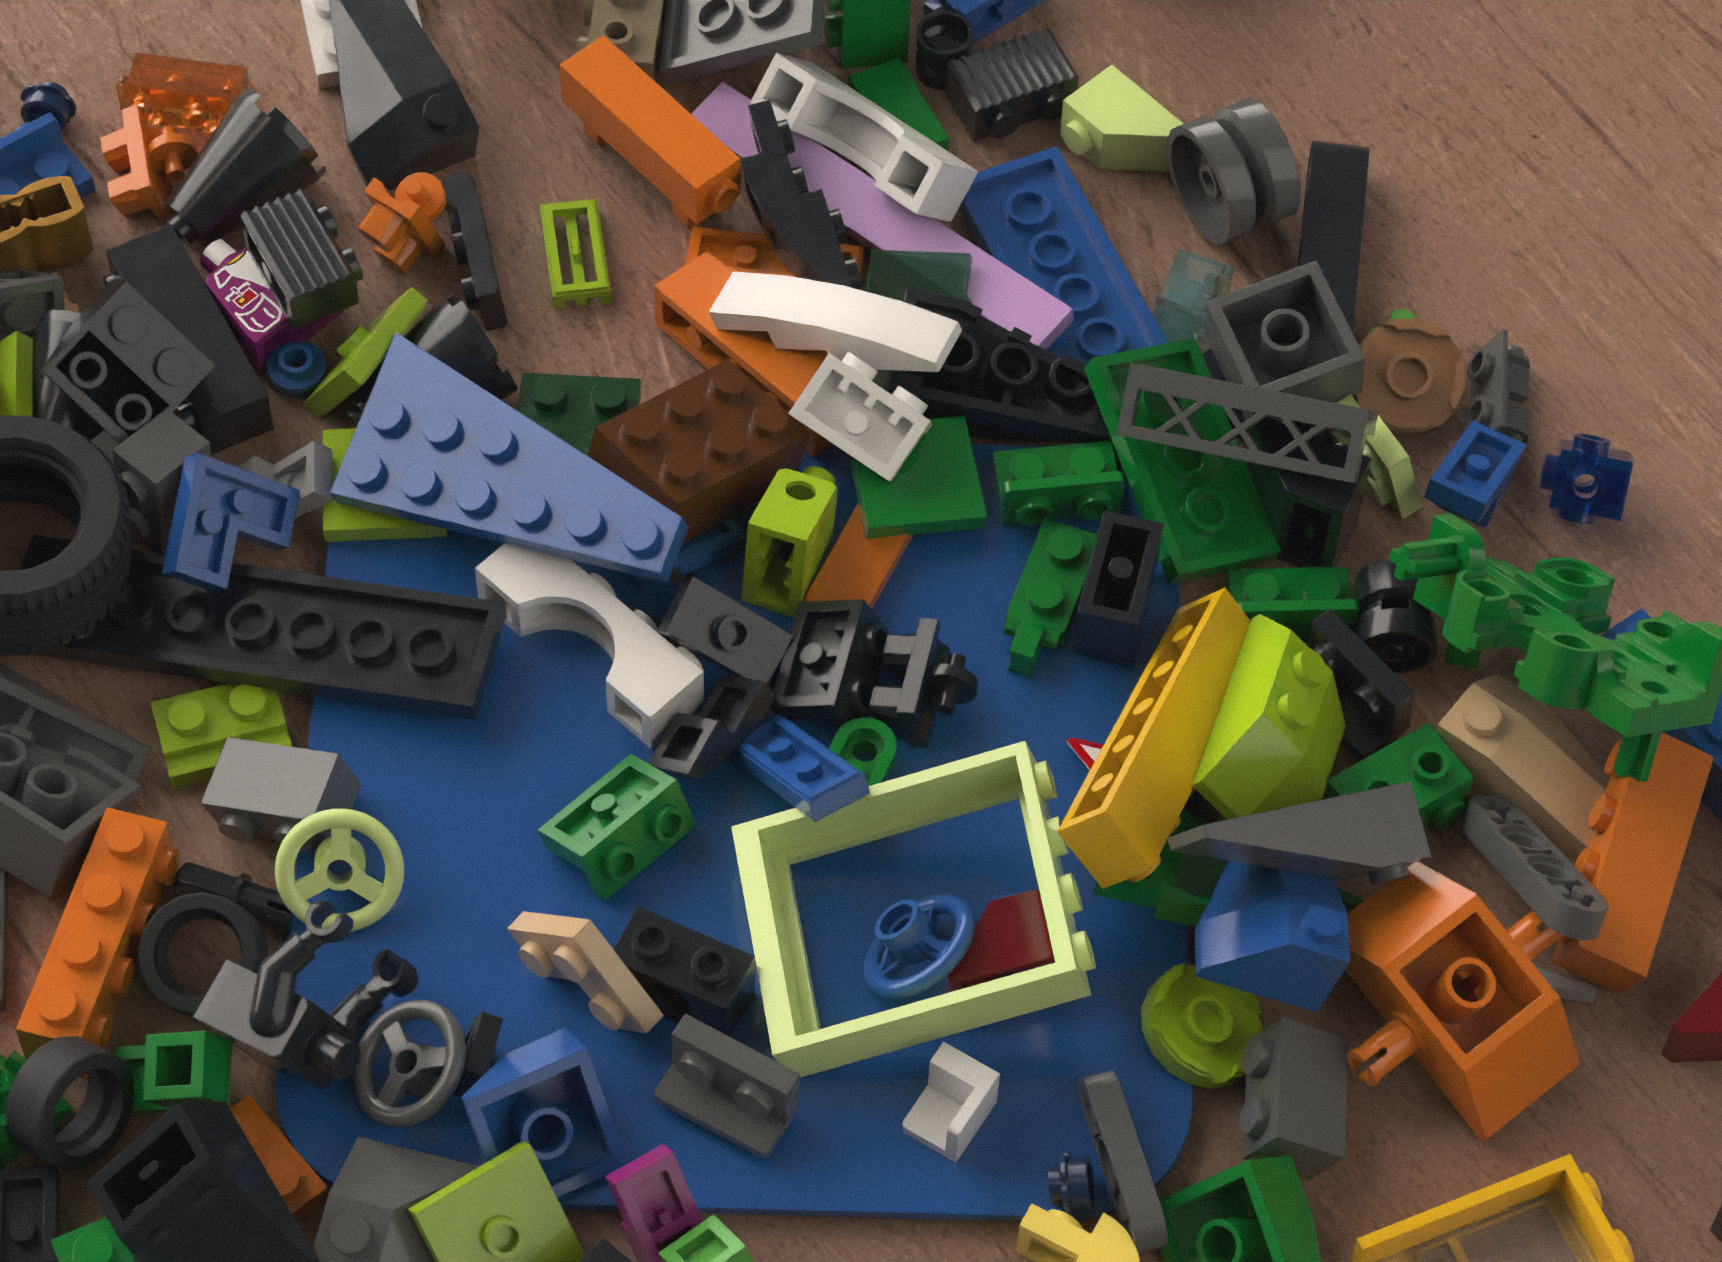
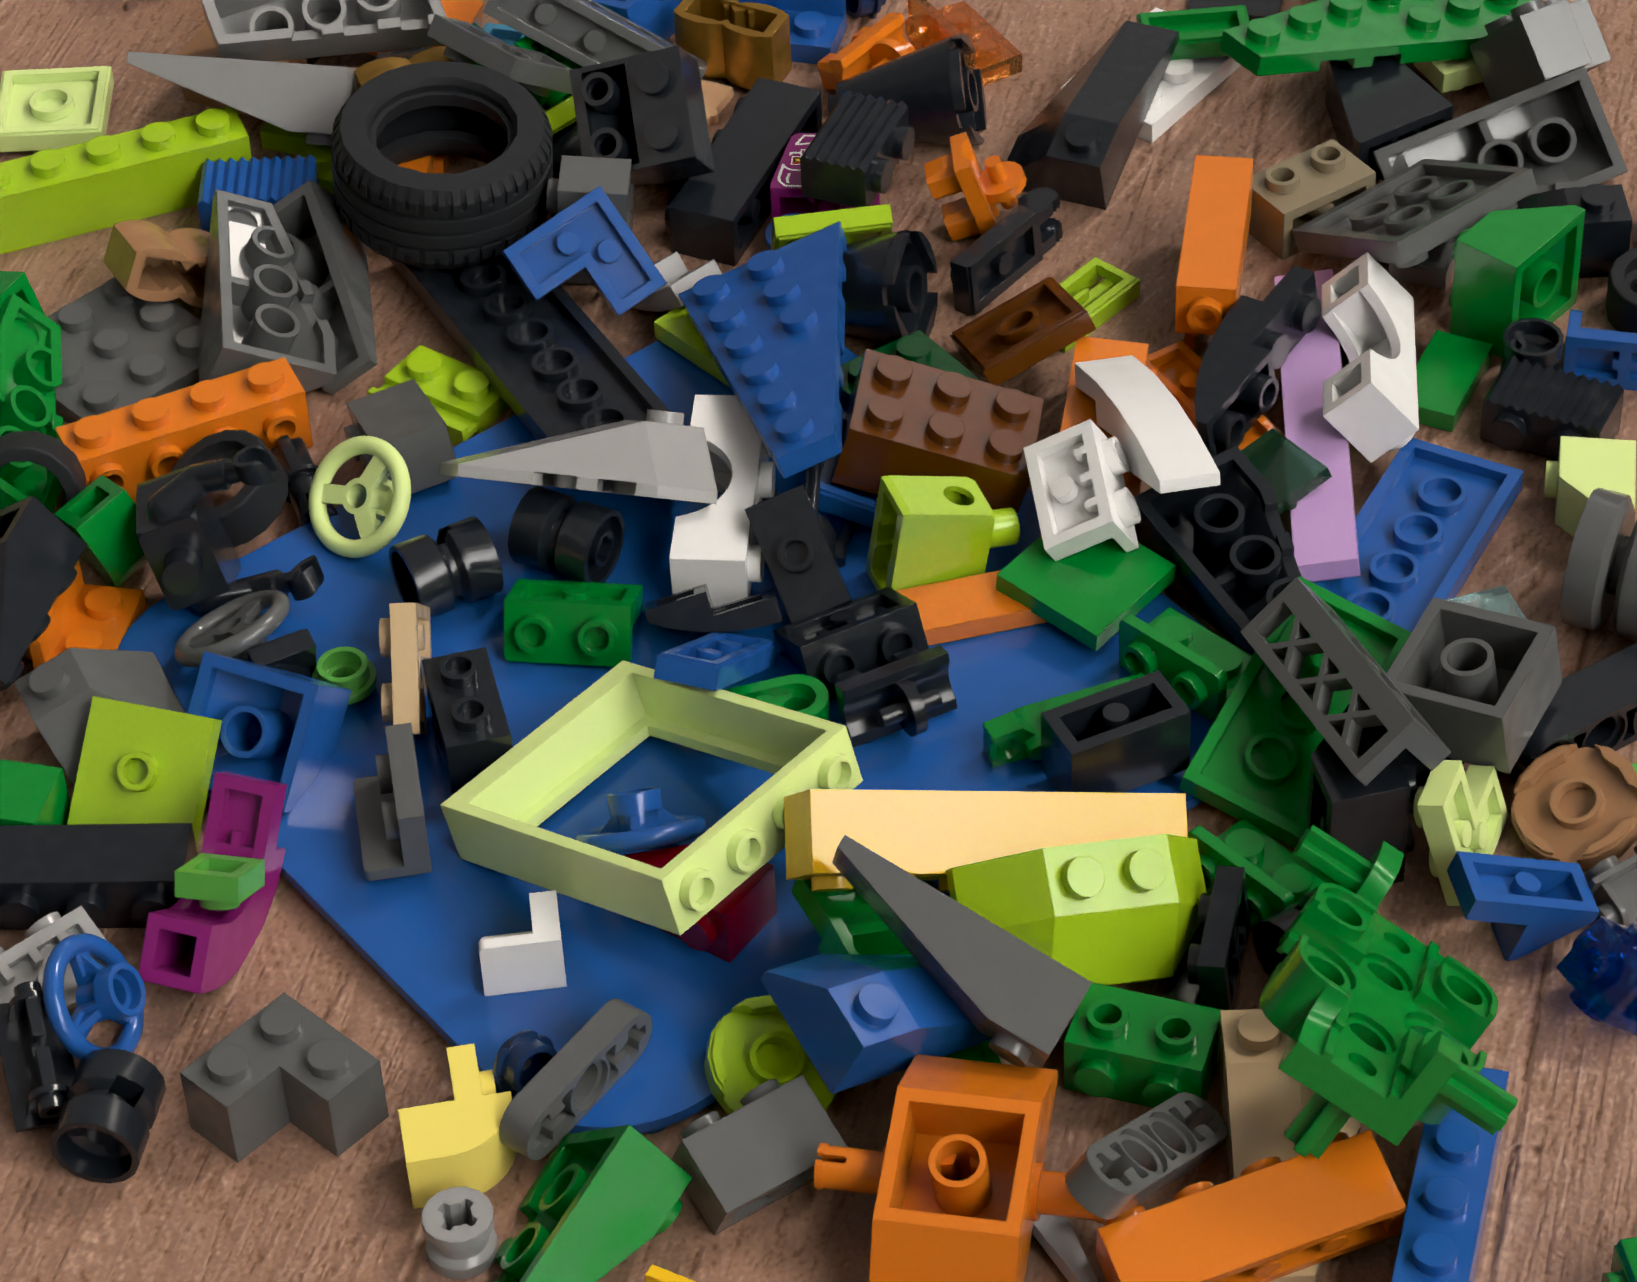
camera: 55 degrees right, 15 degrees down
(485, 869) = (453, 566): none -> black wheel
(507, 682) = (620, 458): none -> light grey wedge
(519, 1007) = (348, 669): none -> bright green plate
(538, 763) = (565, 536): none -> black wheel
(598, 313) = (1022, 331): none -> reddish brown plate

